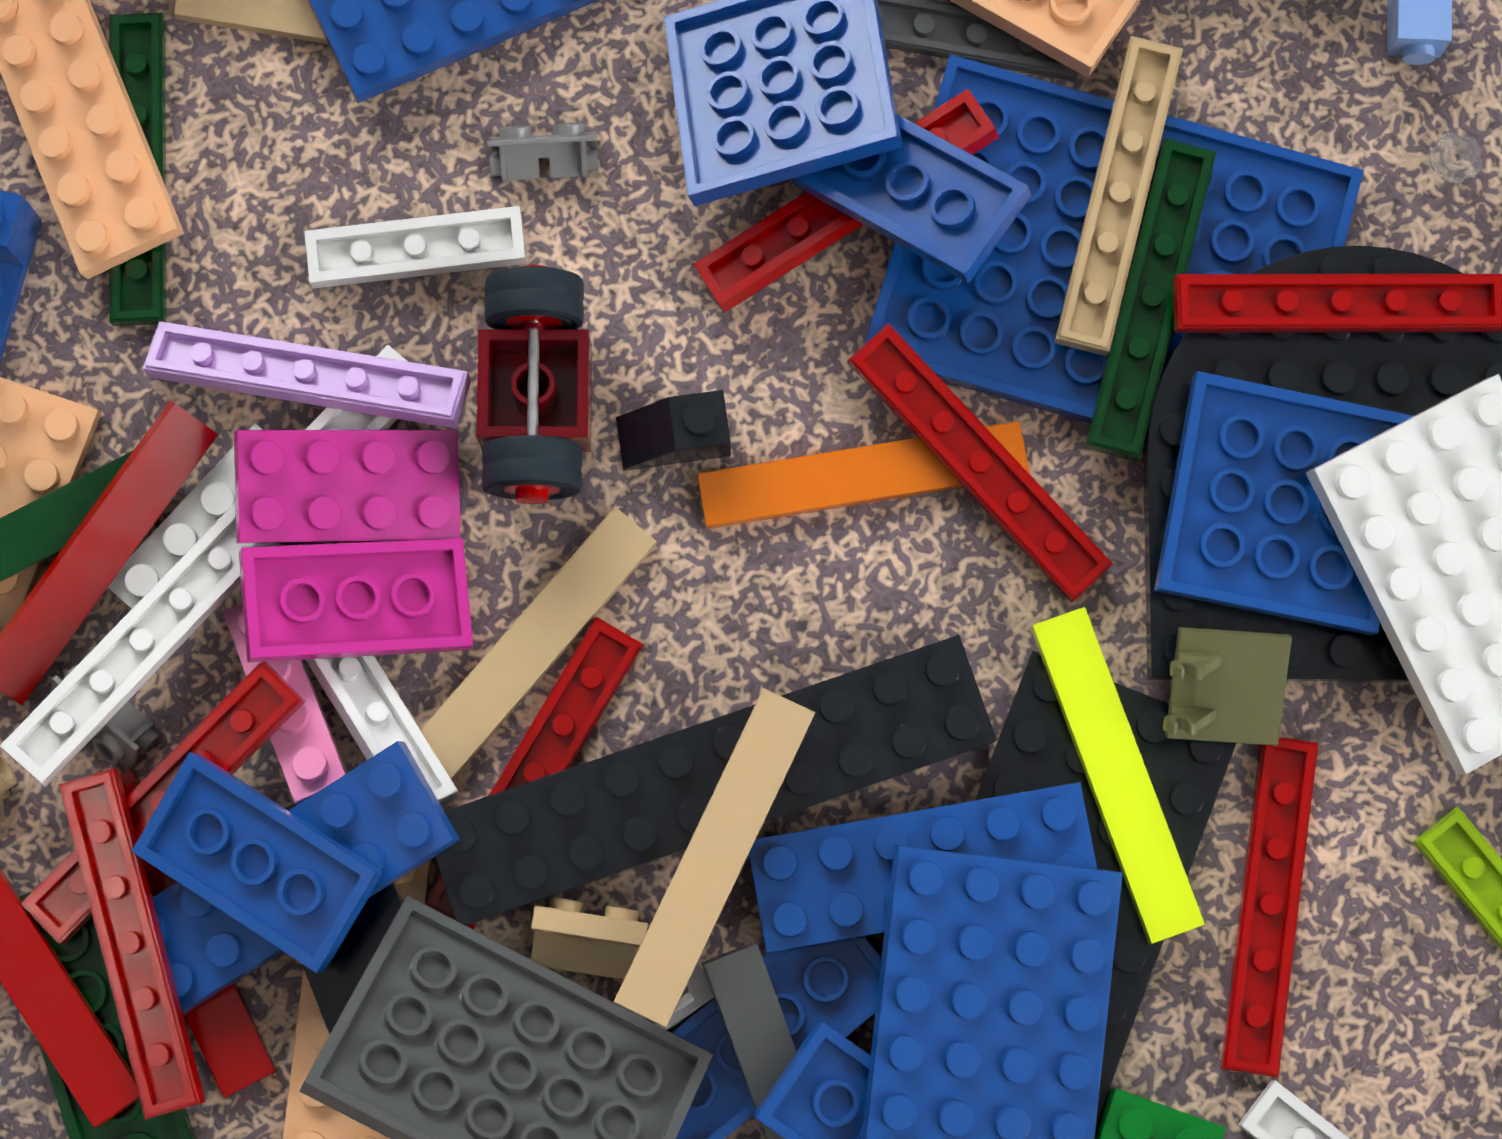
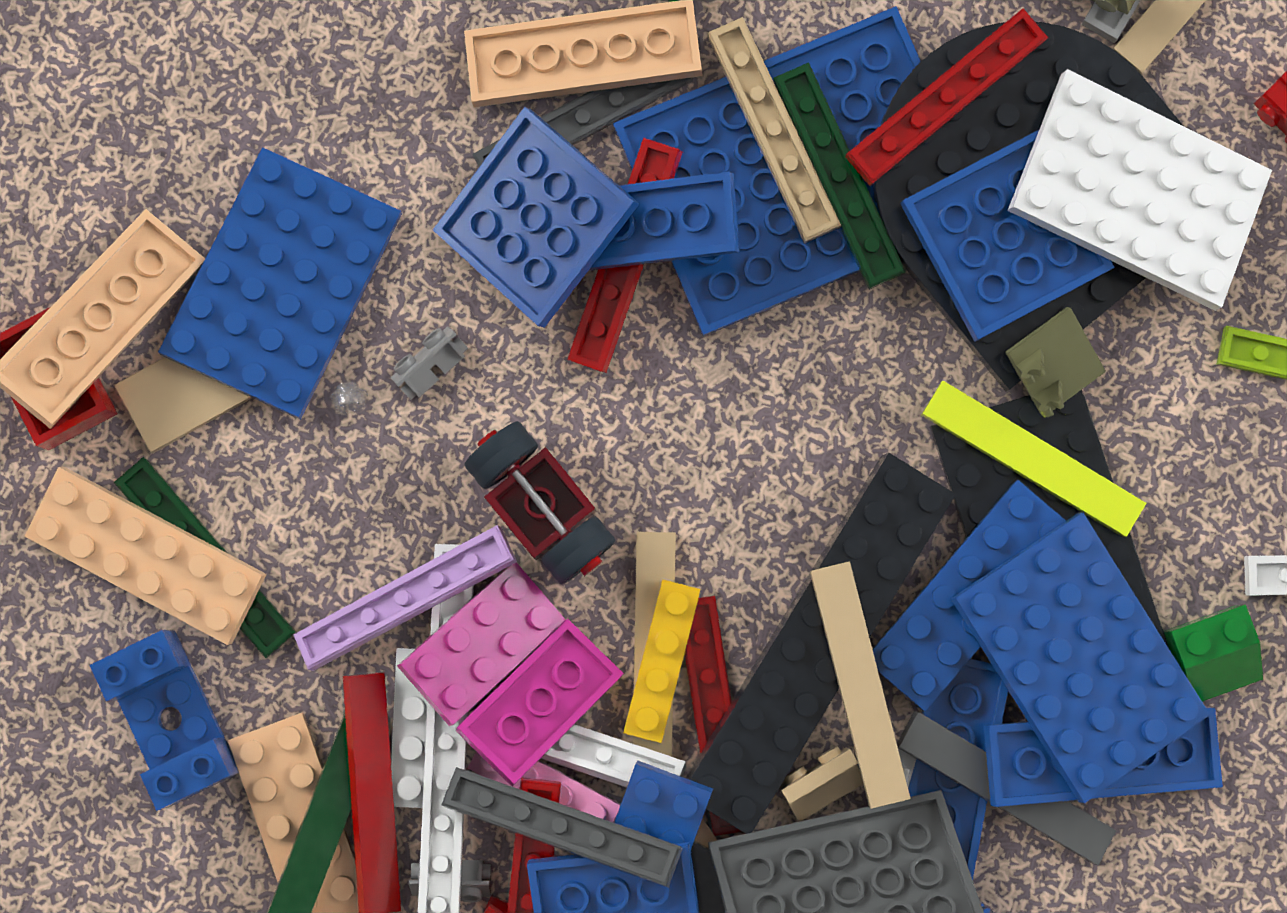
camera: 35 degrees left, 5 degrees up
(261, 745) = (562, 827): none -> dark grey tile
(415, 247) = (402, 475): white plate -> none
(429, 115) = (349, 394): none -> clear plate
(525, 665) = (661, 661): none -> yellow plate
(675, 431) = (635, 463): black slope -> none
(833, 480) = (757, 402): orange tile -> none
(979, 463) = (818, 344): red tile -> none
(1269, 907) = (1169, 463): red tile -> none

